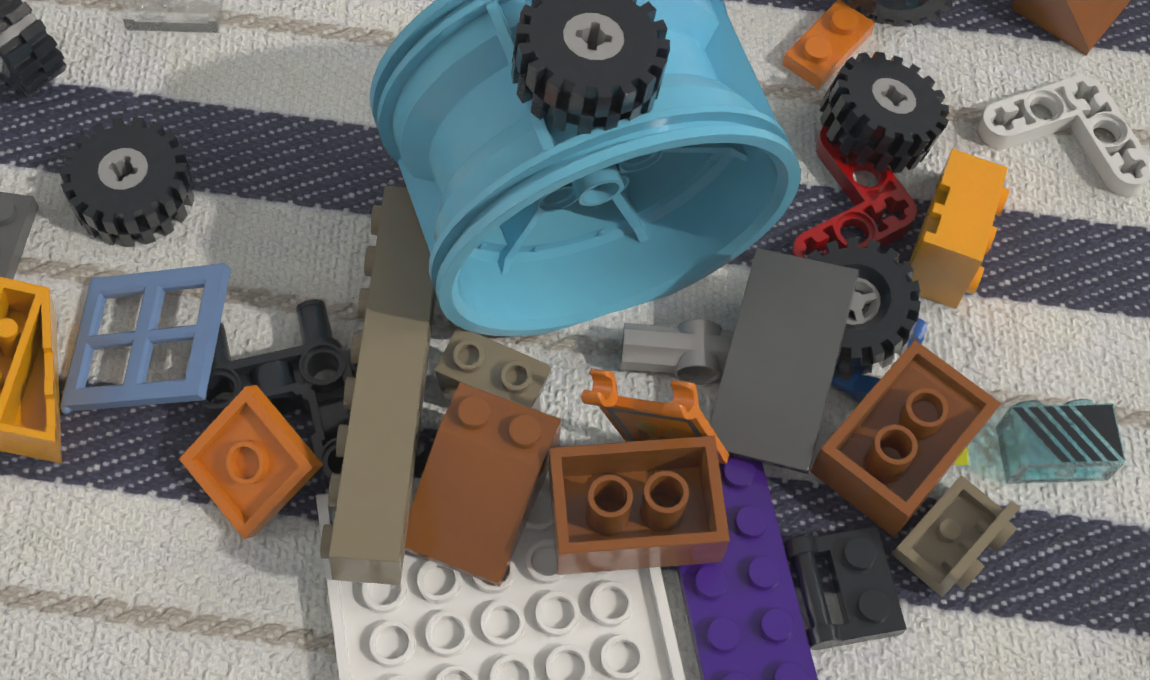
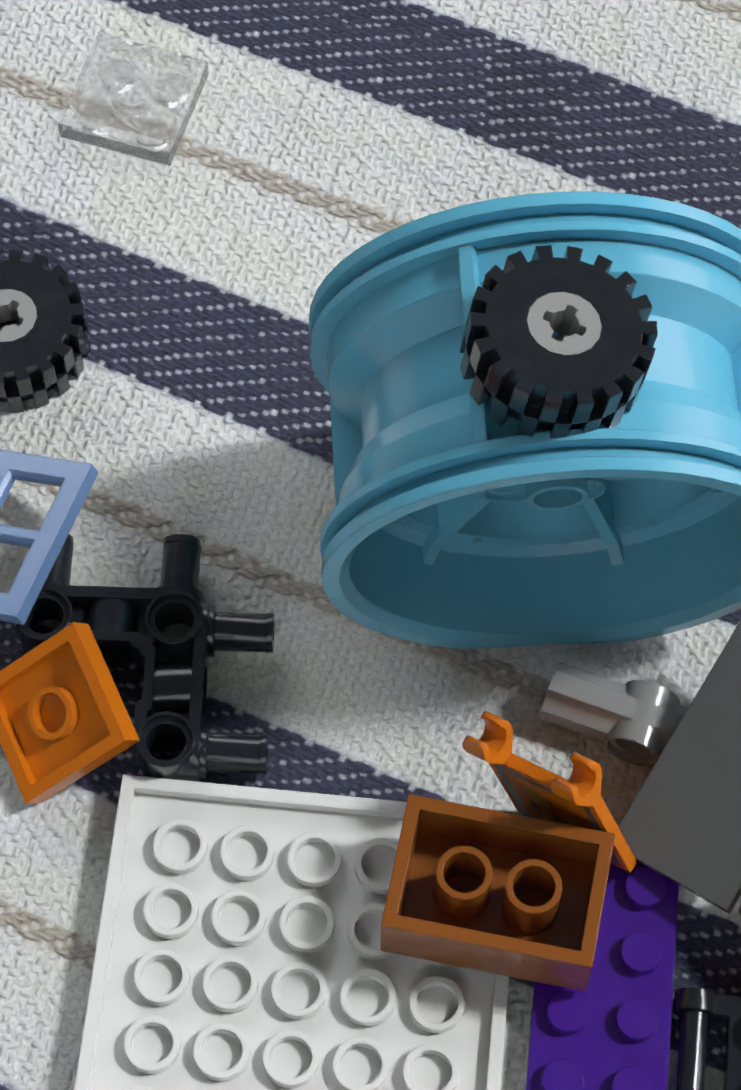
camera: 20 degrees right, 0 degrees up
(384, 401) = (230, 684): dark tan brick -> none
(480, 483) = (318, 814): dark orange slope -> none
(491, 368) = (375, 688): dark tan bracket -> none

